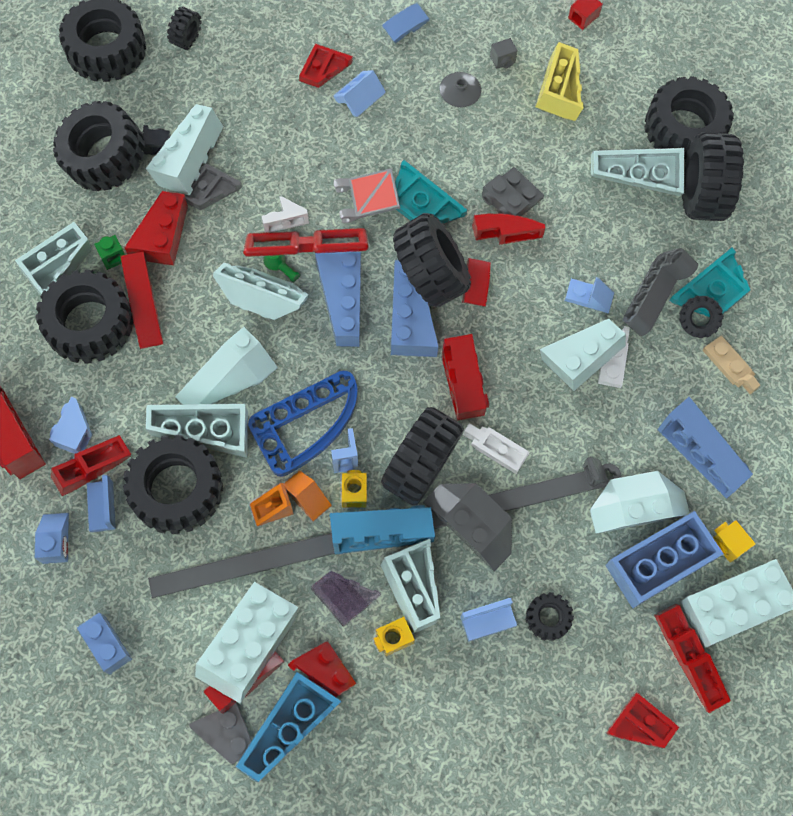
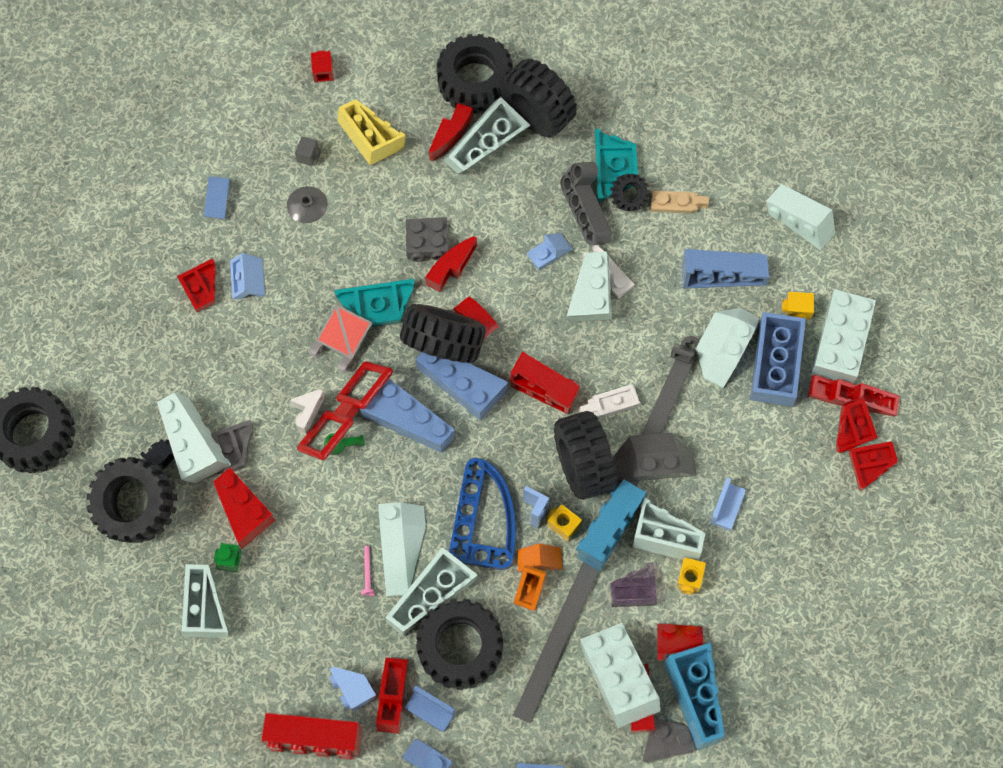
camera: 45 degrees left, 0 degrees up
(71, 292) = (255, 588): black tyre -> none
(141, 300) = (289, 563): red slope -> none
(167, 378) = (367, 591): none -> bright pink piece
(184, 28) = (76, 361): black tyre -> none
(259, 291) = (357, 471): light aqua wedge -> none
(561, 607) = (761, 452): black tyre -> none
(620, 139) = (450, 131): none -> red slope
(663, 679) = (854, 425): none -> red wing

